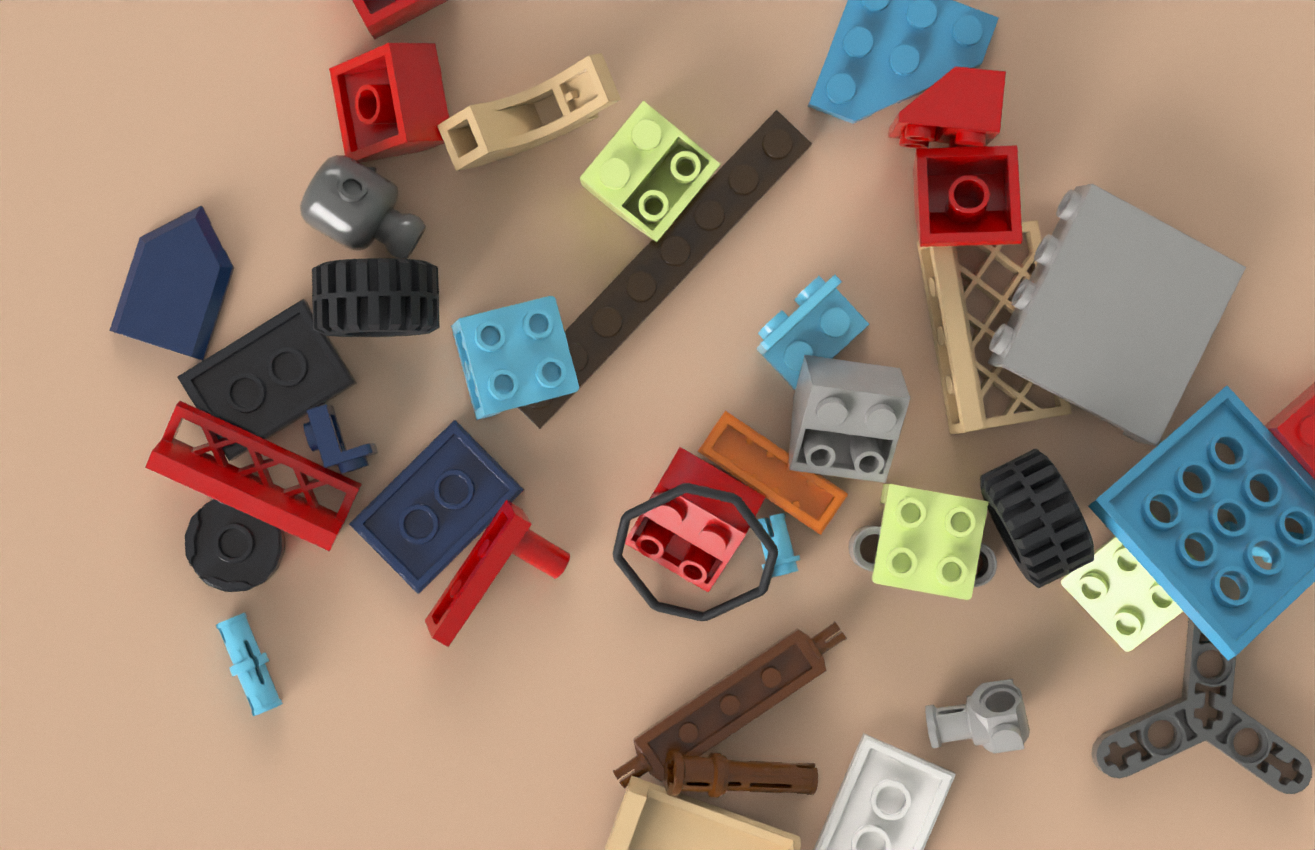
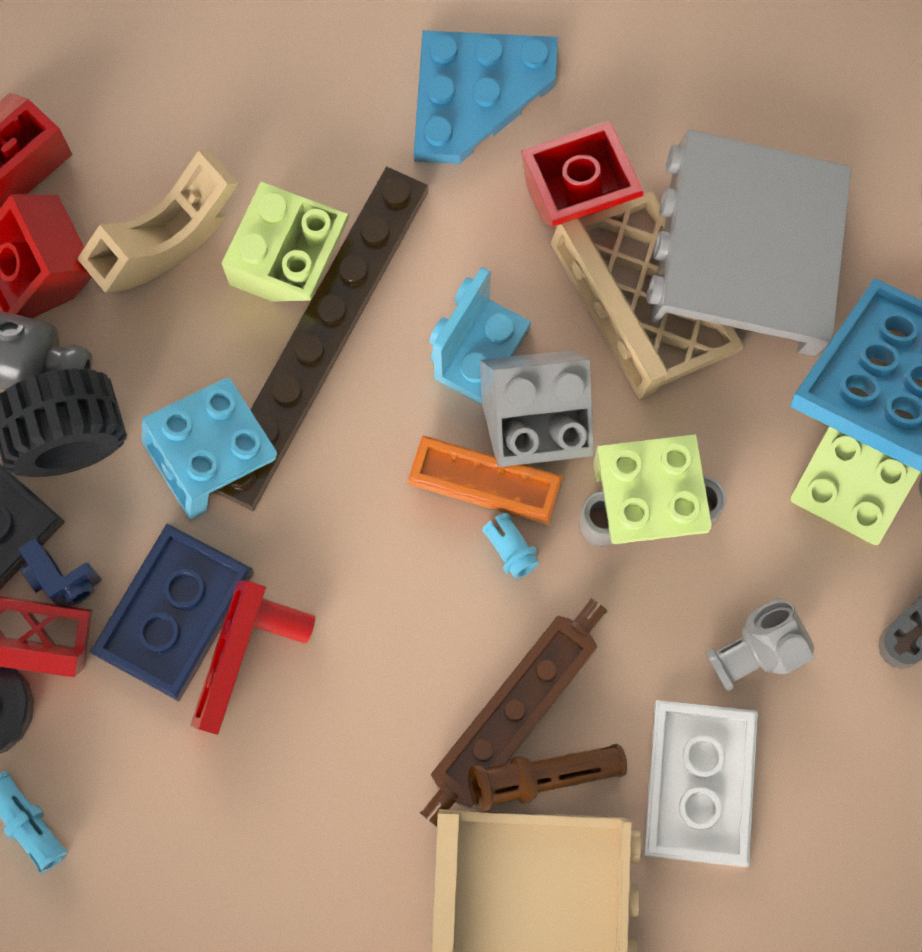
camera: 20 degrees left, 15 degrees down
(694, 532) = (423, 545): red slope -> none
(709, 493) = (384, 520): black piece -> none
(955, 110) = (540, 107): red slope -> none
(1037, 518) = (747, 434): black tyre -> none

